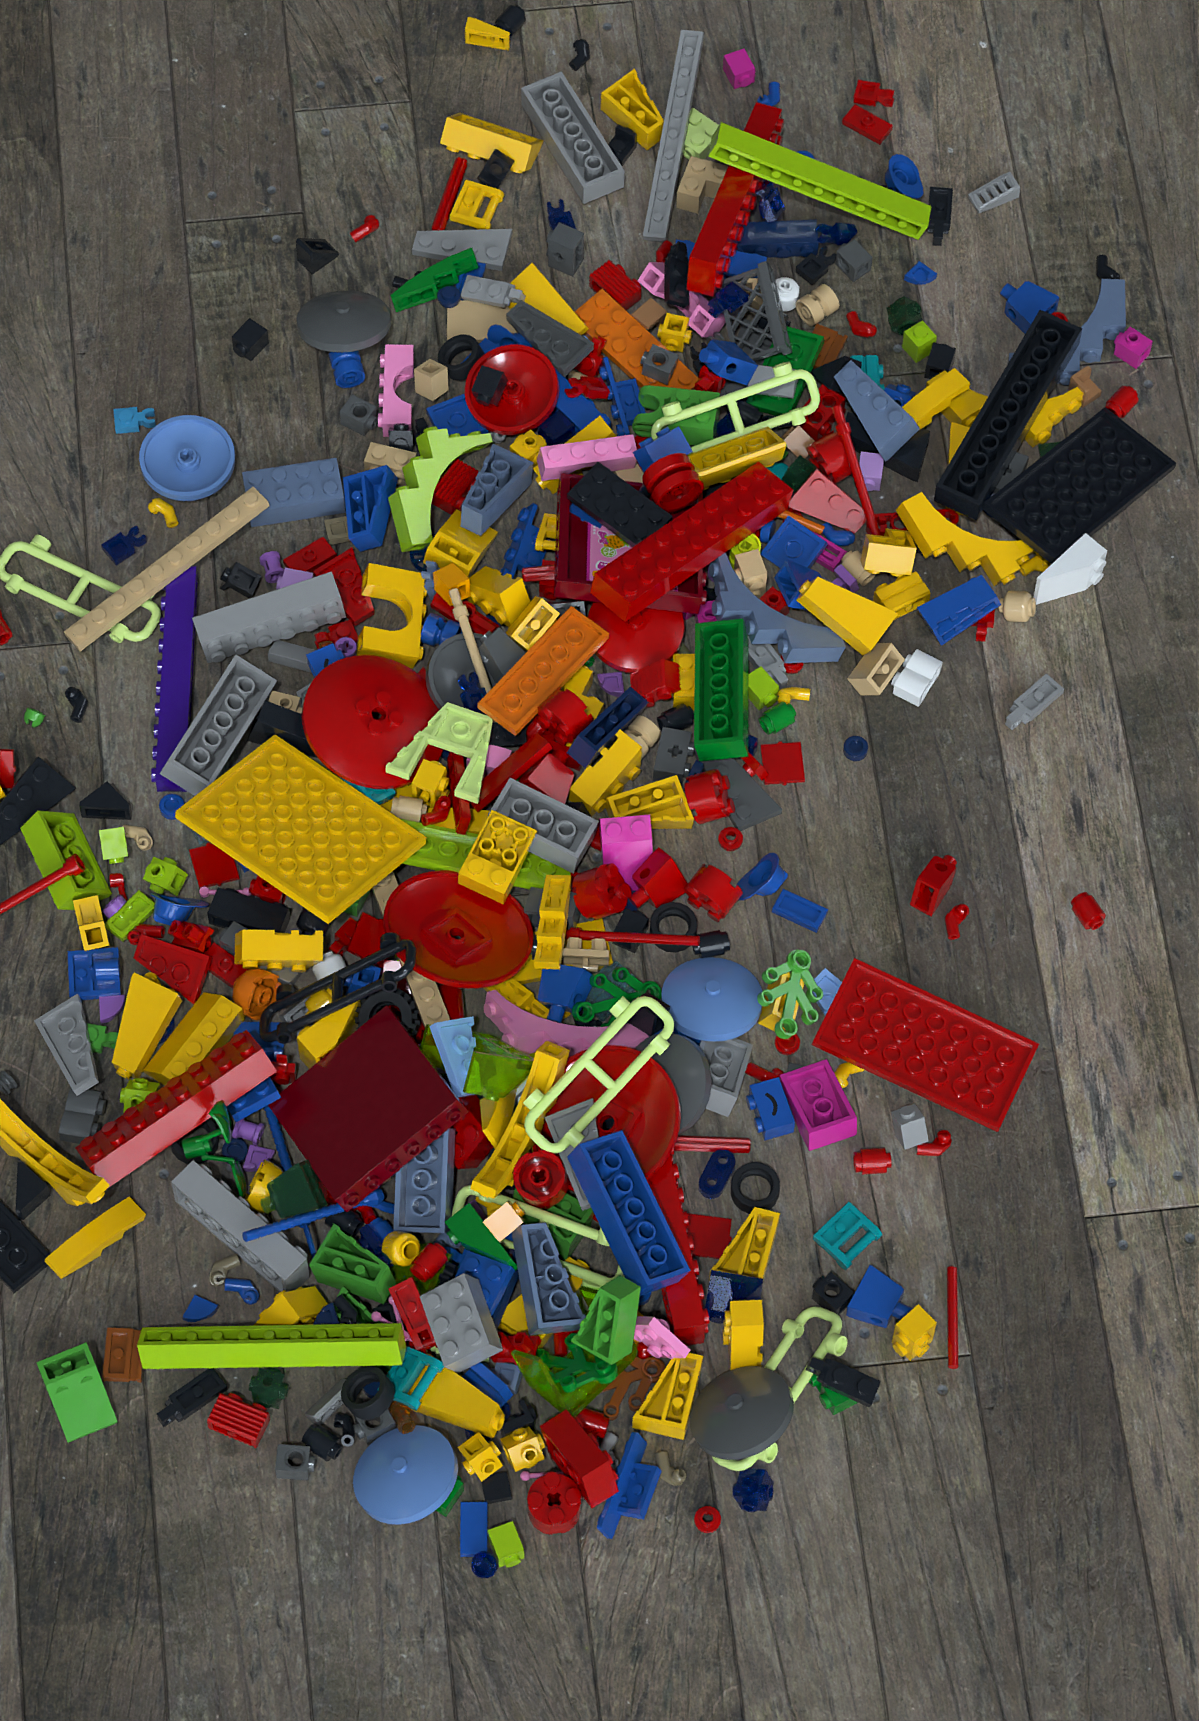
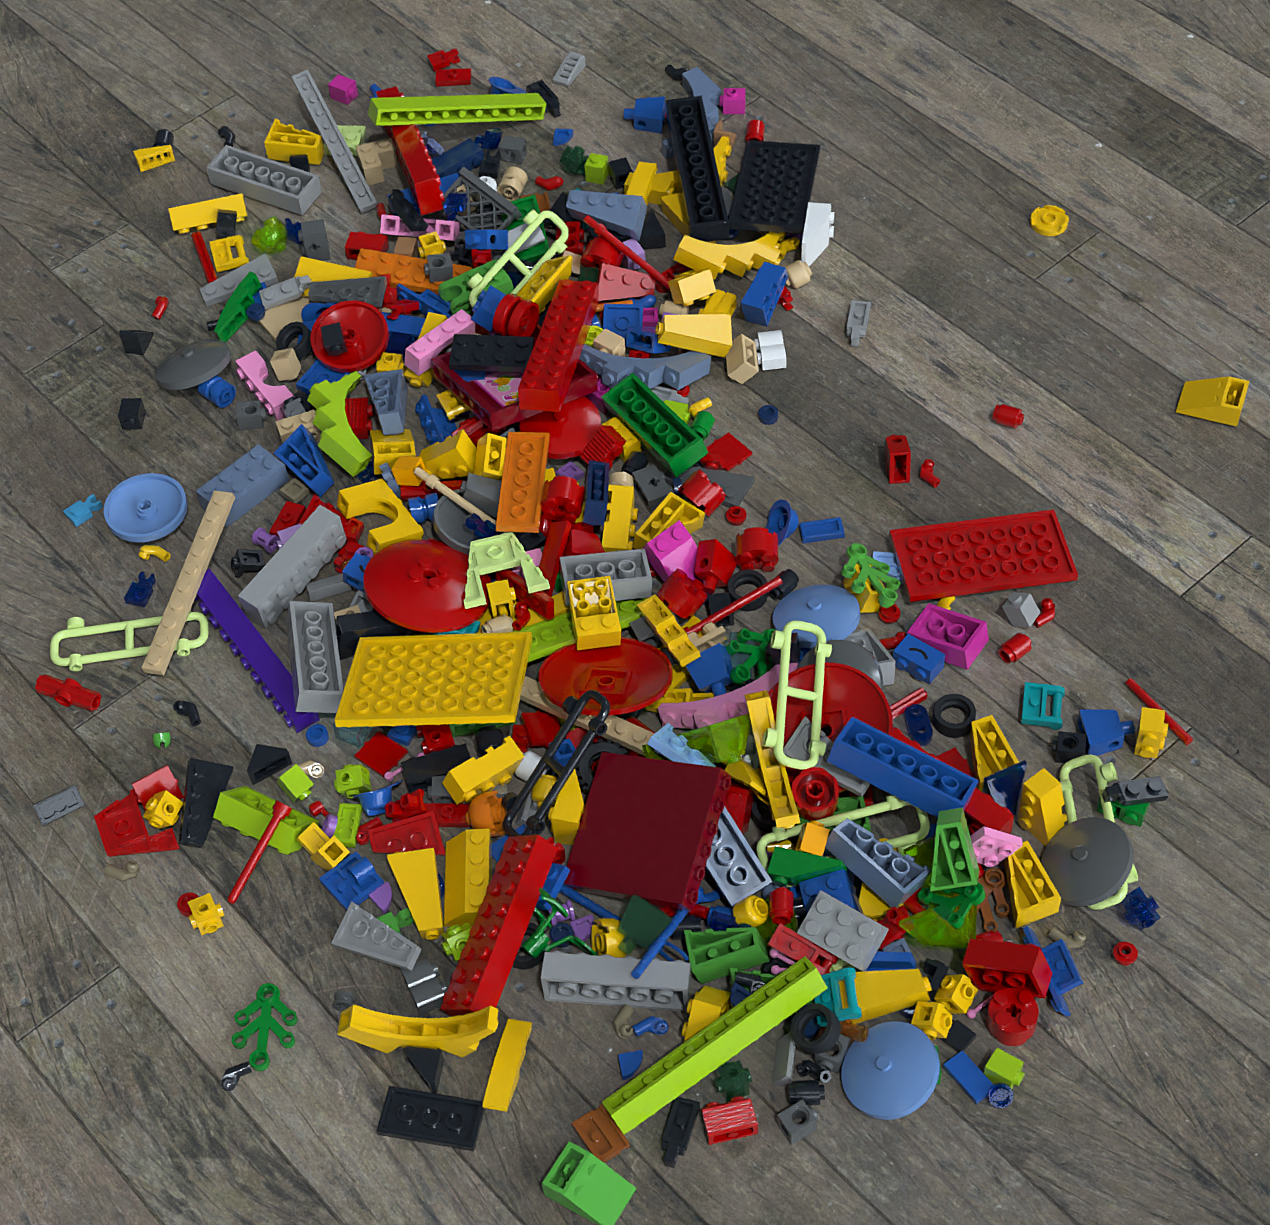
camera: 30 degrees left, 10 degrees down
(528, 215) = (271, 237): none -> clear neon green cylinder

